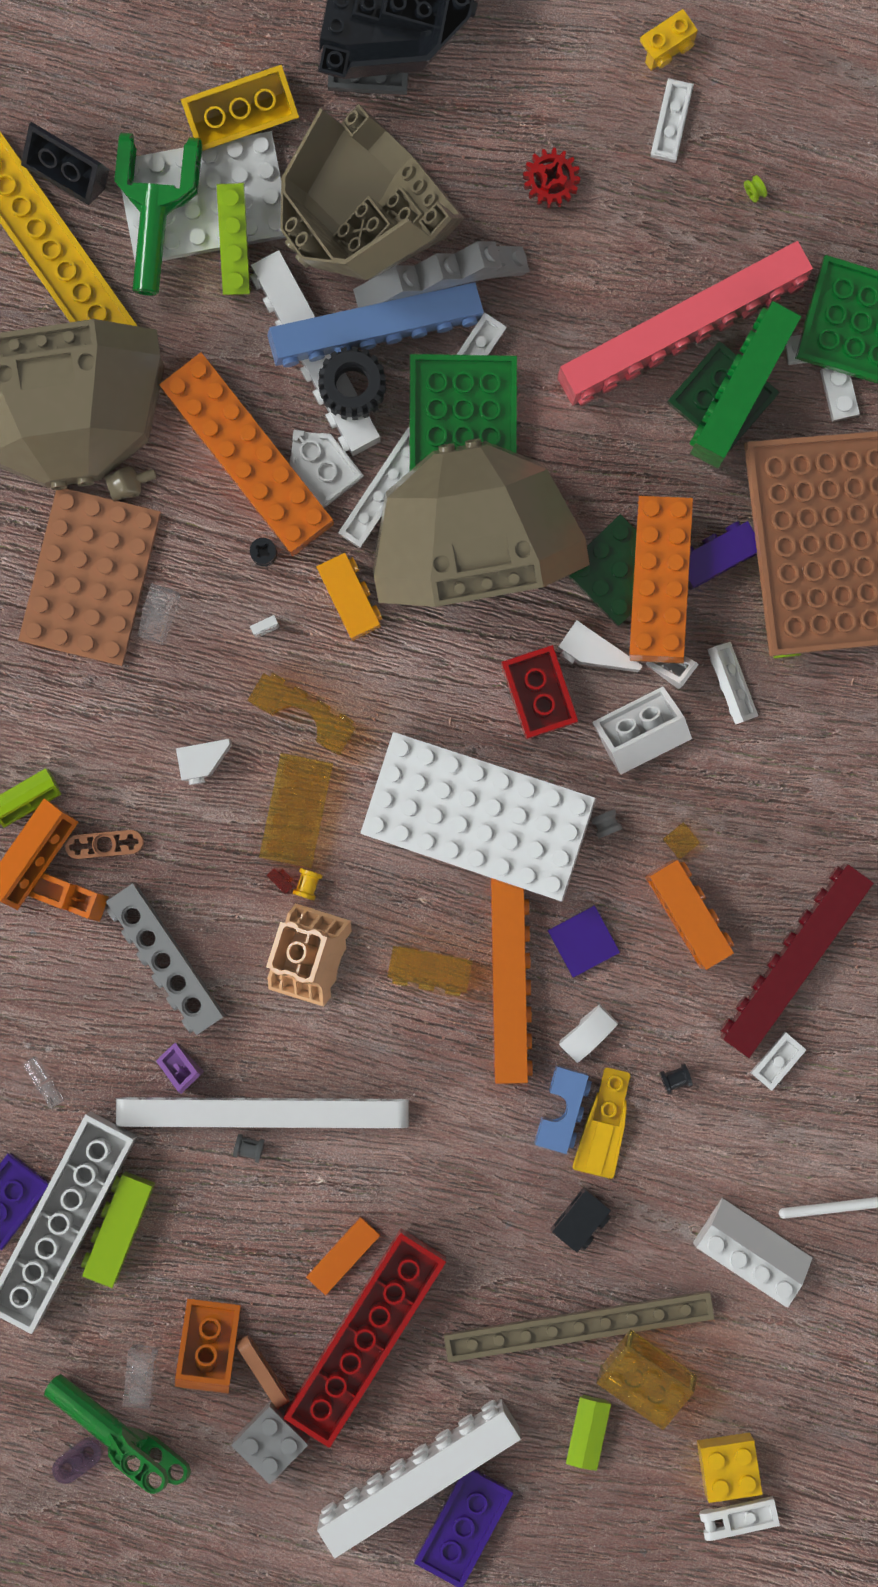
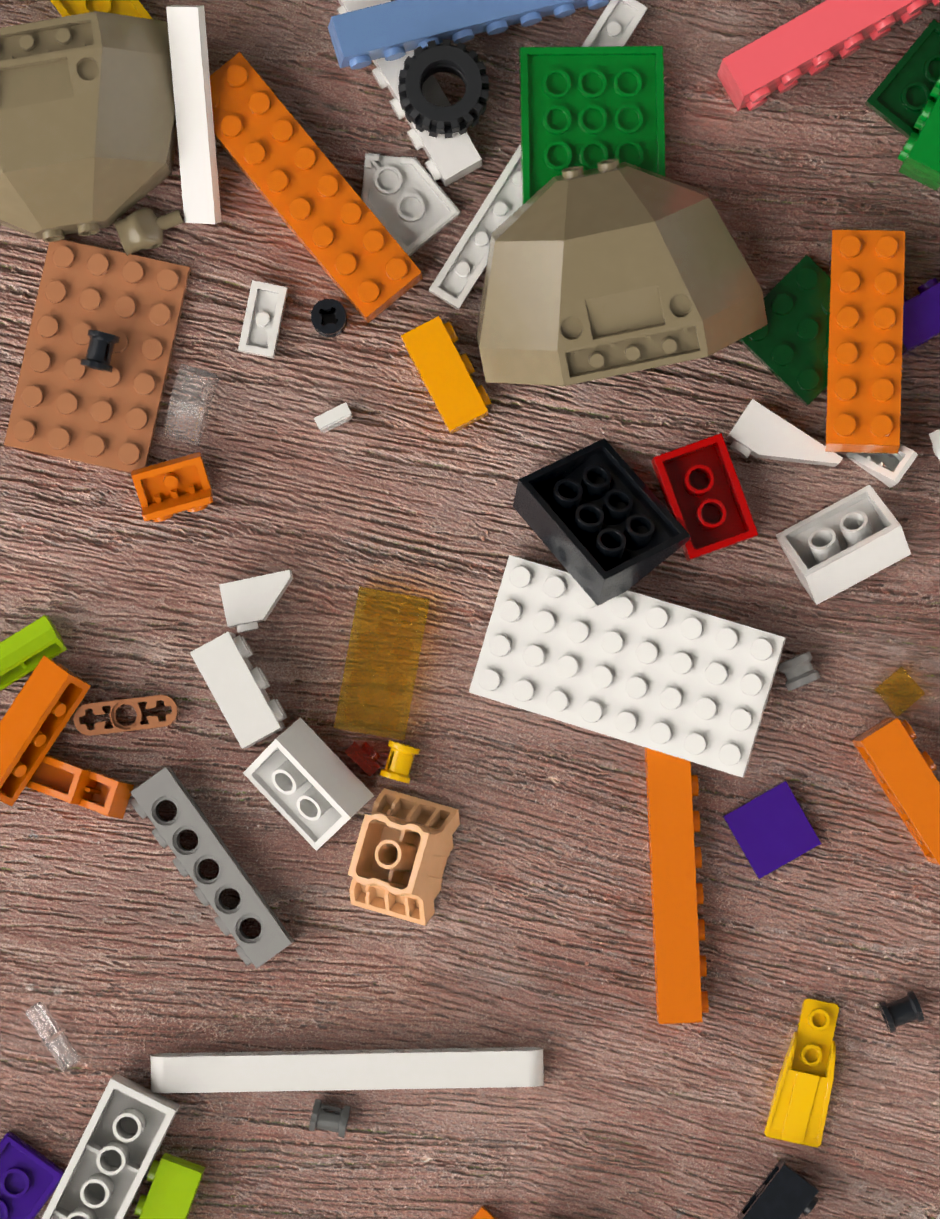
camera: 10 degrees right, 0 degrees up
(91, 572) = (100, 350): none -> black bush
(143, 675) = (172, 487): none -> orange bracket
(165, 397) = (194, 113): none -> white tile
(179, 1067) = (234, 1012): medium lavender slope -> none
(189, 826) = (239, 689): none -> white brick
(214, 551) = (263, 319): none -> white plate
(238, 898) = (308, 783): none -> white slope
(273, 696) = (347, 511): clear yellow arch -> none
(429, 970) = (566, 873): clear yellow brick -> none
(460, 707) = (599, 520): none -> black slope
(558, 1133) = (745, 1087): medium blue arch -> none
(589, 1033) = (782, 953): white slope -> none

